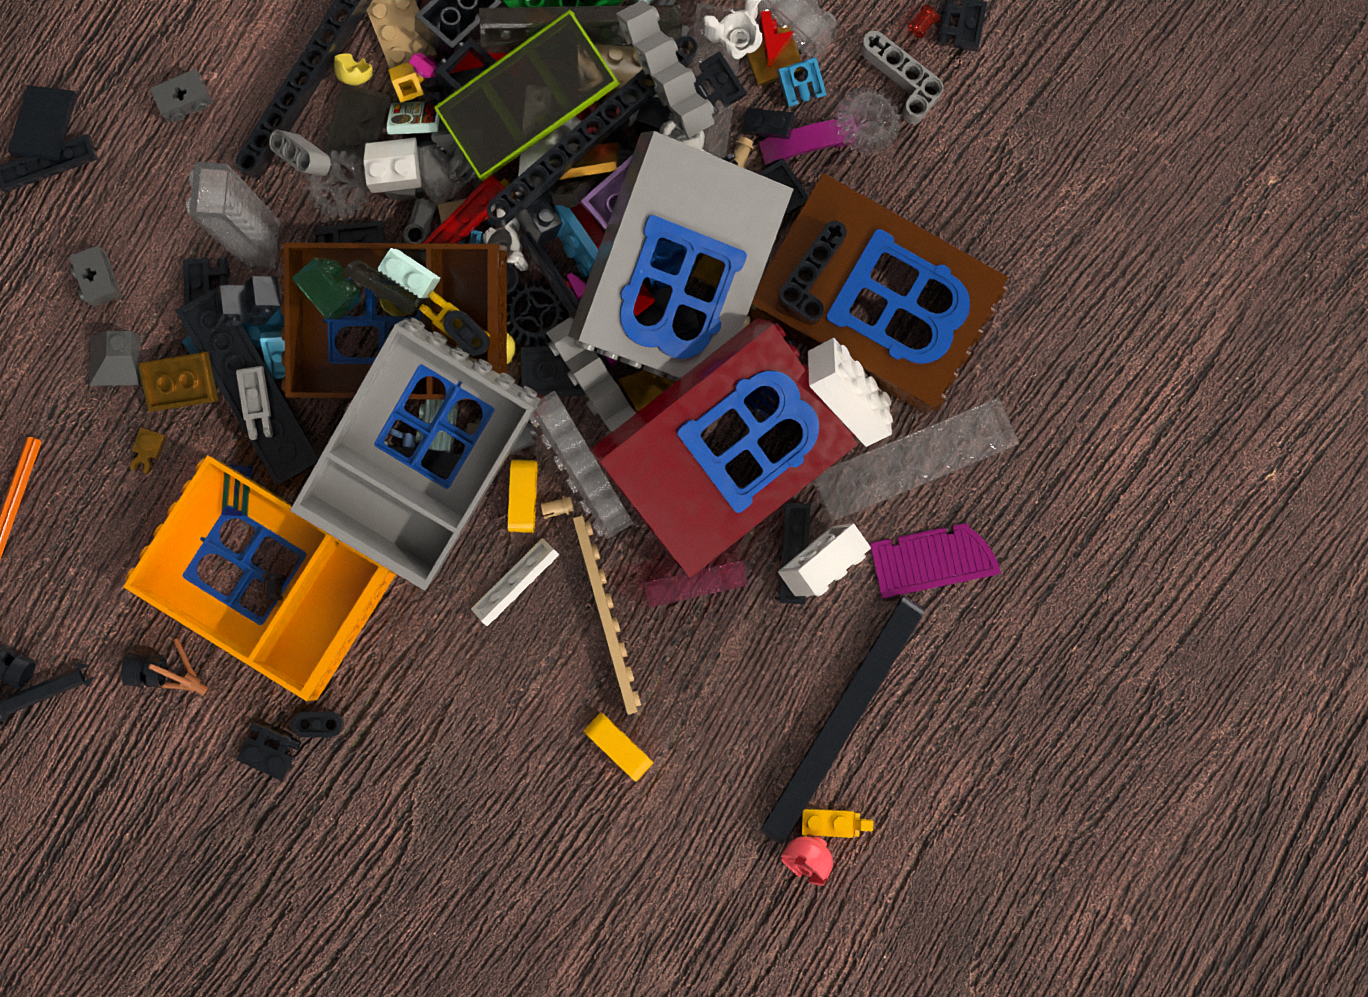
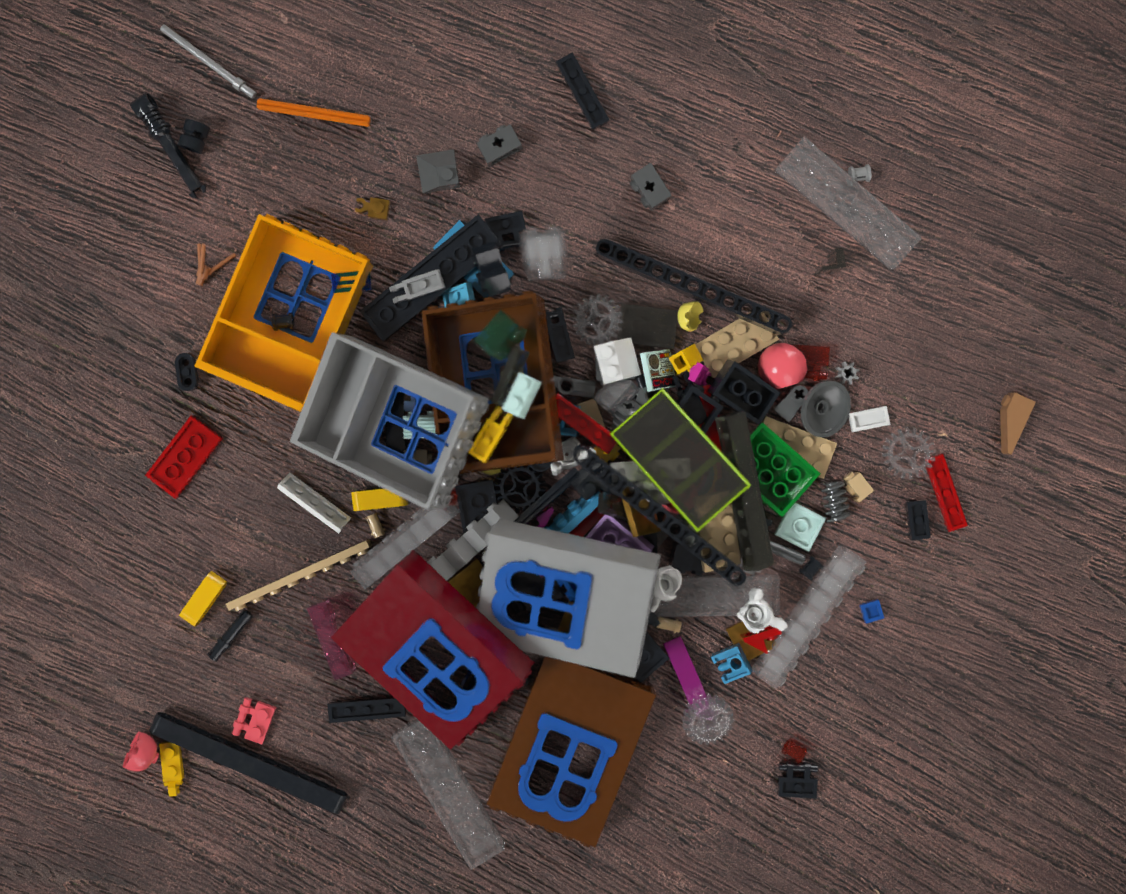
camera: 85 degrees right, 5 degrees up
(42, 122) = (612, 83): black tile -> none
(136, 670) = (206, 233): black wheel -> none
(178, 381) = (426, 224): pearl gold tile -> none
(265, 757) = (157, 337): black plate -> none
(299, 153) = (613, 289): light grey beam -> none
(428, 746) = (183, 456): none -> red tile
(467, 333) = (480, 445): black plate -> none
(658, 58) = (705, 572): light grey brick -> none
(671, 718) = (232, 632): none -> black pin
(722, 80) = (719, 605): black plate -> none
(768, 123) = (694, 642): black plate -> none
(792, 697) = (259, 723): none -> coral plate
(815, 268) = (576, 702): black beam -> none
(825, 560) = (360, 735): white brick -> none
(849, 392) = (488, 739): white brick -> none
(898, 72) = (749, 738): light grey beam -> none
(932, 560) = (378, 812): magenta piece -> none

